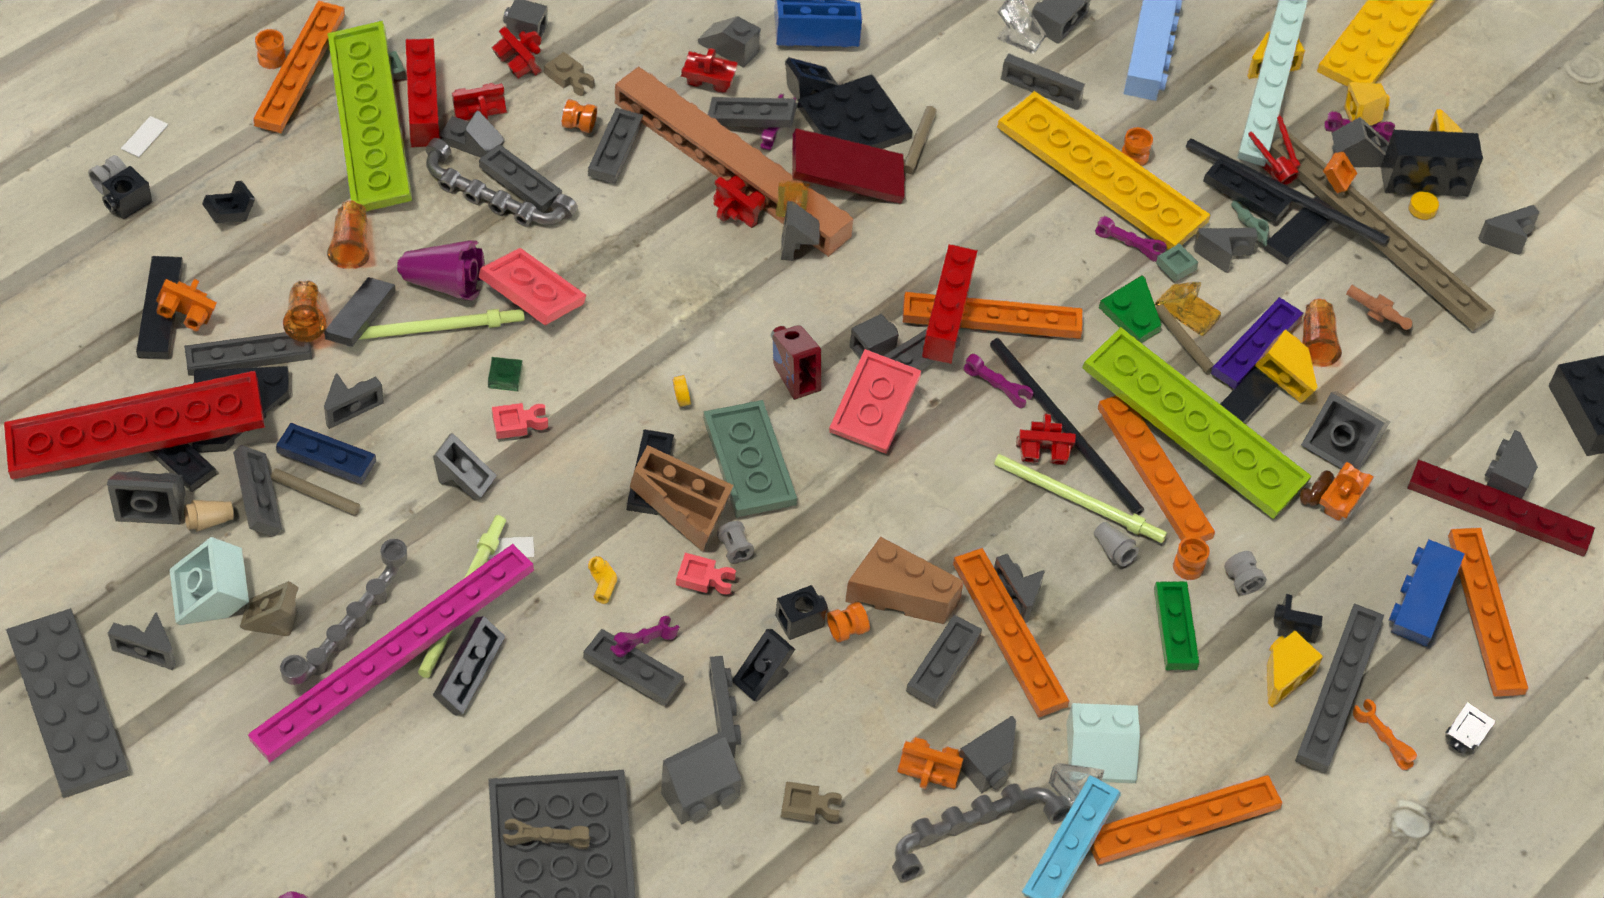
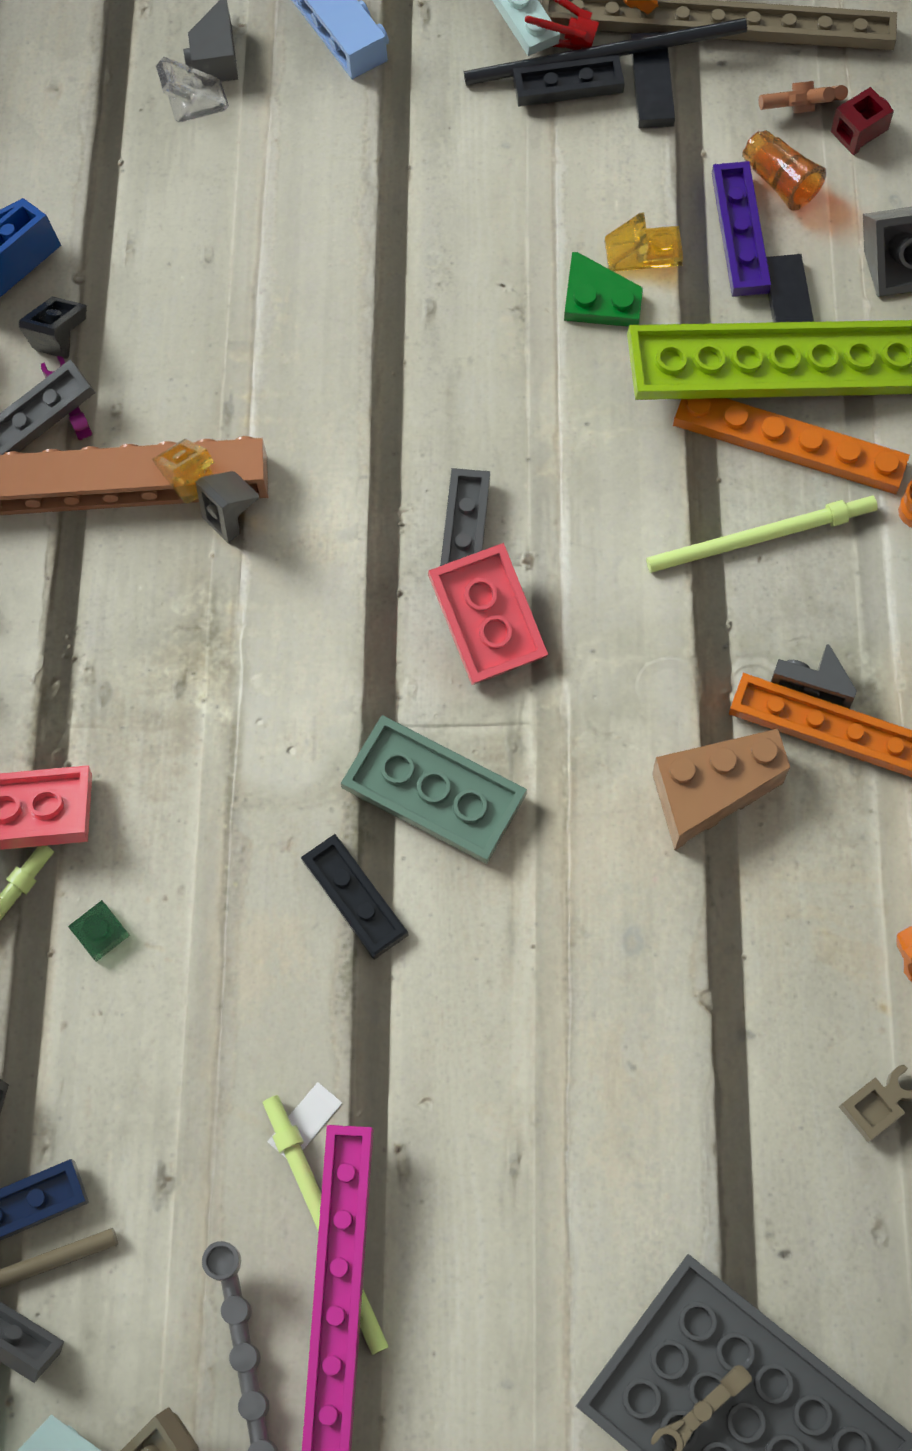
camera: 35 degrees left, 15 degrees up
(460, 464) = (179, 1084): slope -> none
(469, 665) = (419, 1298): plate -> none
(514, 420) = (166, 977): coral plate -> none
(605, 578) = (440, 1058): yellow arm -> none
(628, 641) = (548, 1111): magenta piece -> none
(634, 668) = (571, 1129): dark grey plate -> none
(681, 391) = (293, 780): yellow tile -> none
(681, 494) = (425, 898): medium nougat wedge -> none
(700, 573) = (522, 962): coral plate -> none
(700, 778) = (774, 1191): dark grey slope -> none
(723, 704) = (701, 1084): dark grey plate -> none
(735, 204) = (125, 526): red hips -> none
(735, 541) = (518, 893): light grey bush -> none
(764, 665) = (691, 1001): black slope -> none
(796, 622) = (653, 923): black brick -> none
(797, 360) = (368, 639): dark red torso -> none
(848, 166) = (192, 385): dark red tile -> none
(848, 622) = (710, 873): orange wheel -> none
(856, 113) = (138, 327): black plate -> none
(874, 335) = (412, 547): dark grey brick -> none
(919, 139) = (222, 294): dark tan bar -> none
(944, 660) = (832, 824): dark grey plate -> none
(949, 304) = (451, 445): red brick -> none
(975, 366) = (529, 486): magenta piece -> none
(1002, 316) = (487, 419): orange plate -> none
(1043, 81) = (273, 130): dark grey plate -> none
(1045, 436) = (691, 498): red hips -> none
(1067, 427) = (670, 471): black piece -> none
(1103, 171) = (423, 175): yellow plate -> none
(1107, 228) = (490, 231): magenta piece -> none
(1118, 546) = (845, 551): light grey cone -> none
(1138, 145) = (429, 123): orange wheel -> none
(1177, 262) = (588, 210): sand green plate -> none
(1184, 339) = (675, 283): dark tan bar -> none
(1220, 244) = (610, 157): dark grey slope -> none
(1252, 222) = (610, 111): sand green hand -> none
(1289, 365) = (799, 226): yellow slope -> none
(1402, 347) = (861, 120): none -> dark red brick

